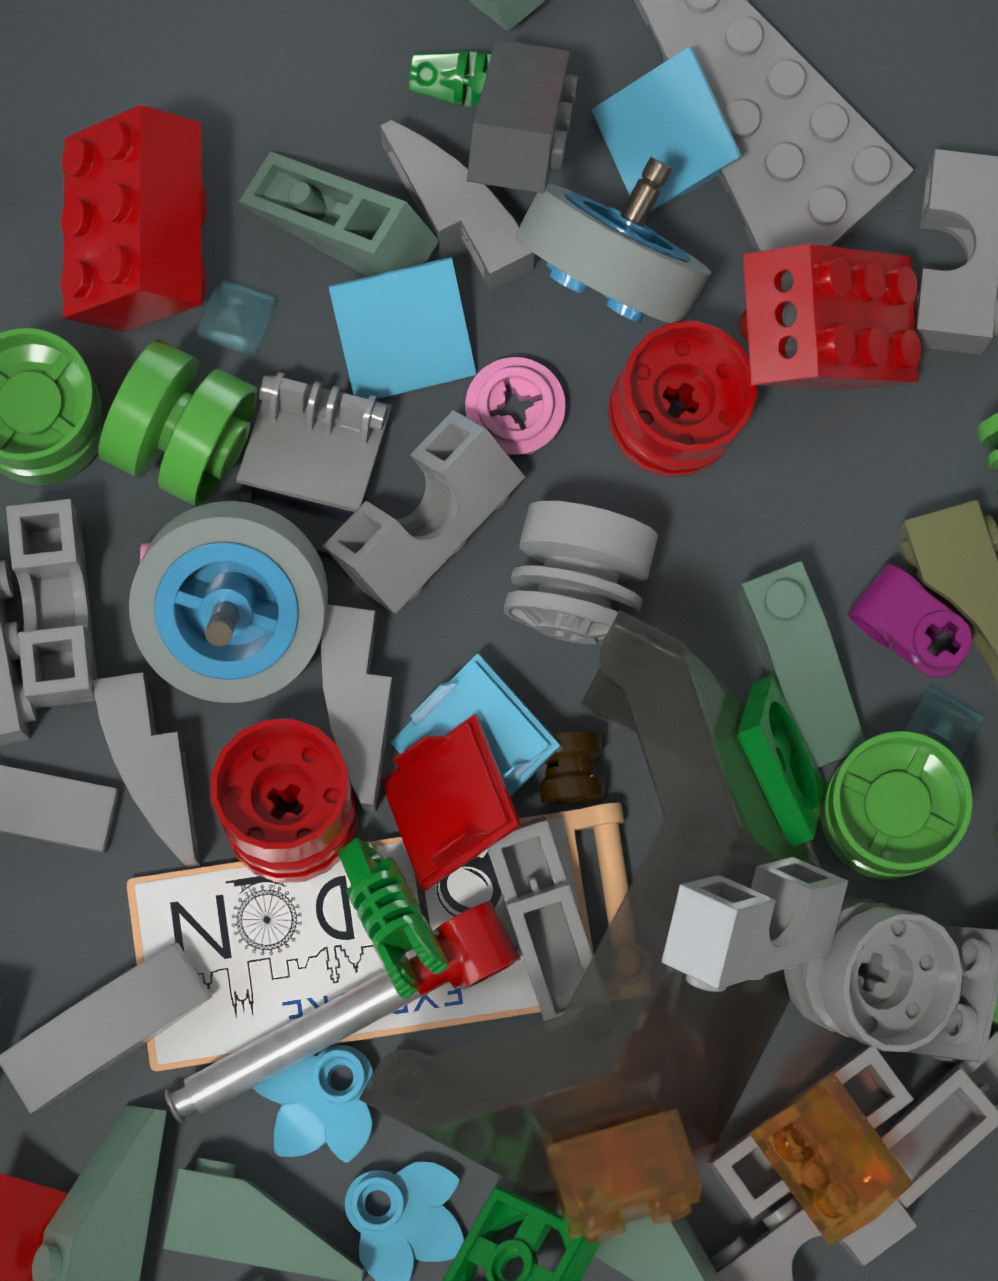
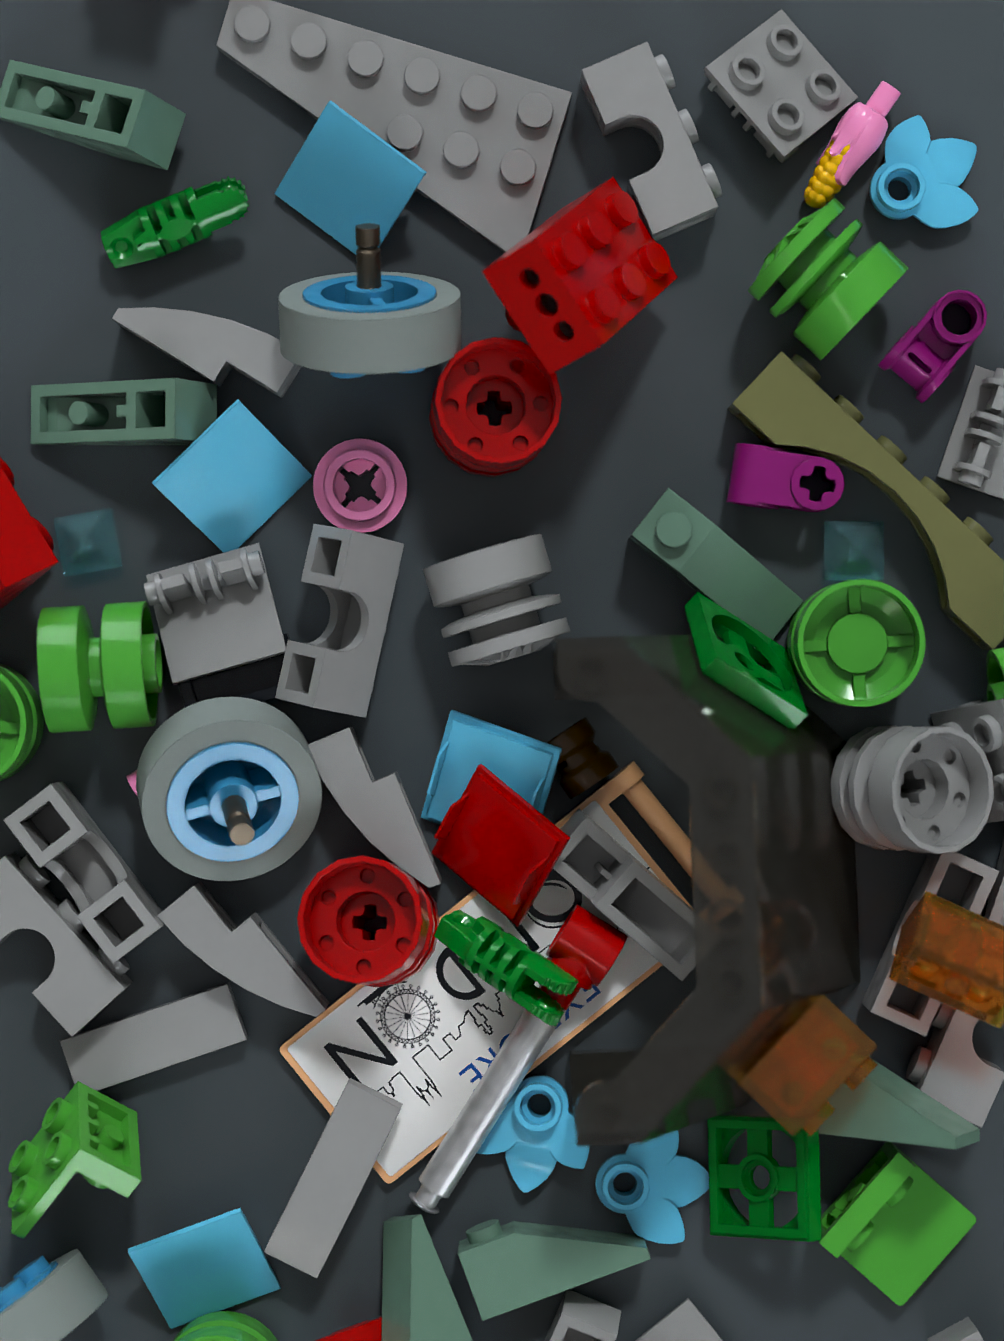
camera: 30 degrees left, 10 degrees up
(522, 117) = (230, 253): dark grey wedge -> none
(741, 933) = (795, 845): light grey arch -> none

